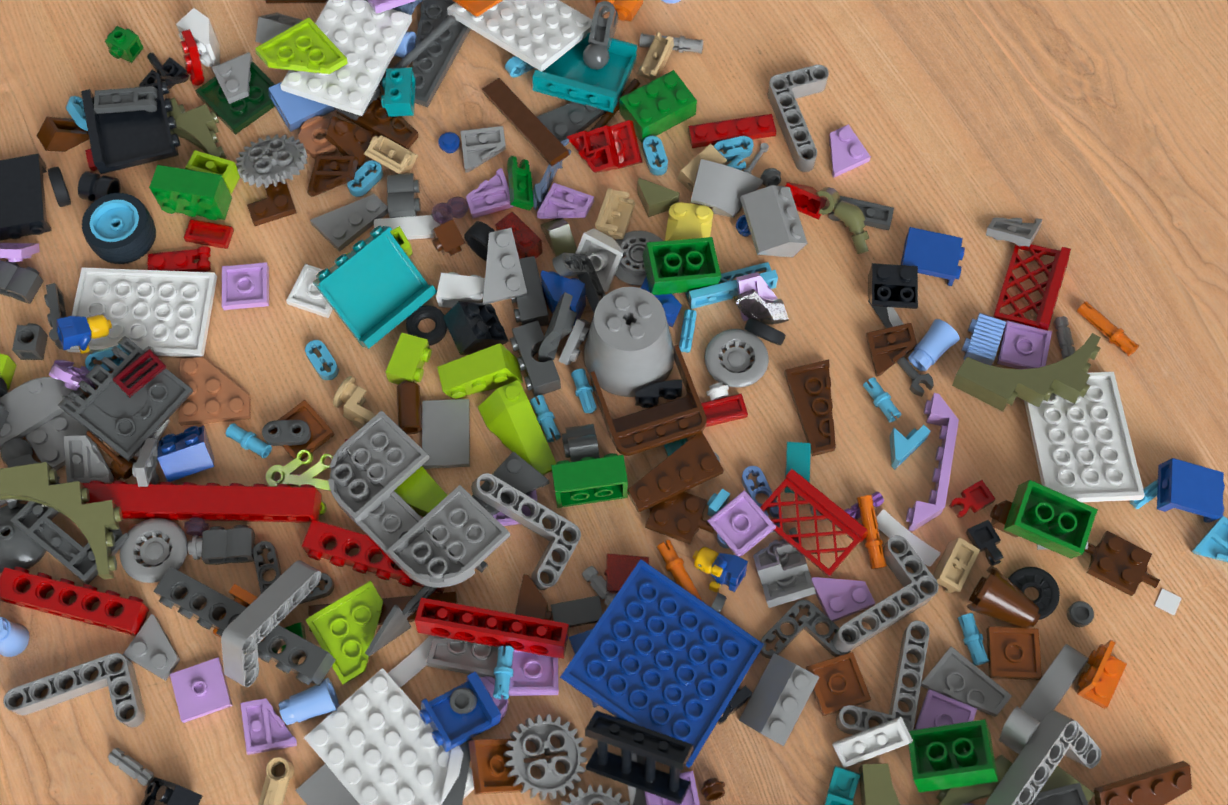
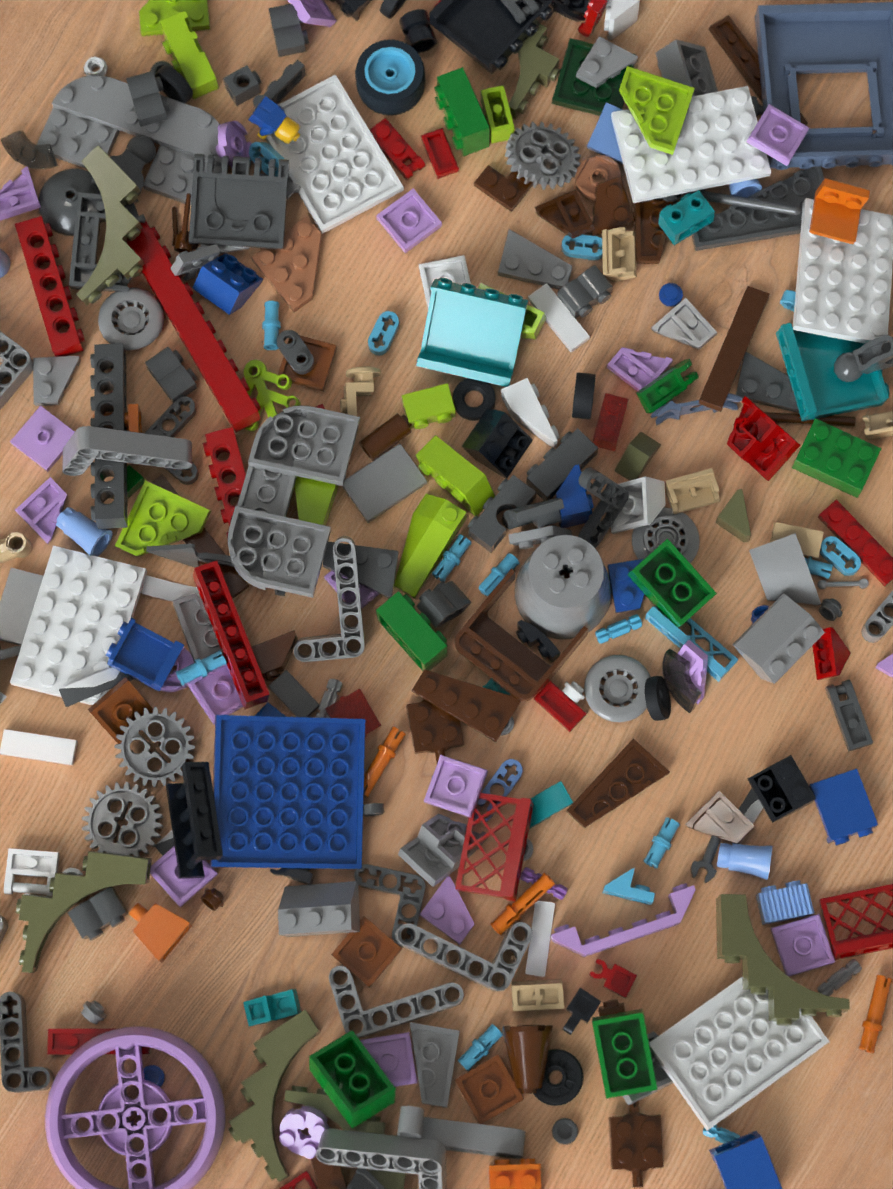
camera: 60 degrees right, 10 degrees up
(84, 460) = (167, 209): light grey wing -> none
(147, 378) = (284, 201): dark red tile -> none
(195, 547) = (153, 349): light grey plate -> none
(196, 526) = (171, 338): plate -> none
(442, 213) = (589, 338): clear purple plate -> none
(447, 238) = (567, 360): reddish brown brick -> none
(459, 206) = (608, 346): clear purple plate -> none
(463, 700) = (155, 650): dark grey tile -> none
(503, 268) = (562, 429): light grey wing -> none
(565, 203) = (674, 439): lavender wing -> none
(650, 156) = (788, 491): medium azure beam -> none
(688, 221) = (726, 565): light yellow slope -> none
(717, 502) = (466, 754): medium azure plate -> none
(725, 568) = (406, 792): piece -> none
(849, 214) = (832, 702): olive piece -> none
(872, 742) = (327, 1007): white tile -> none

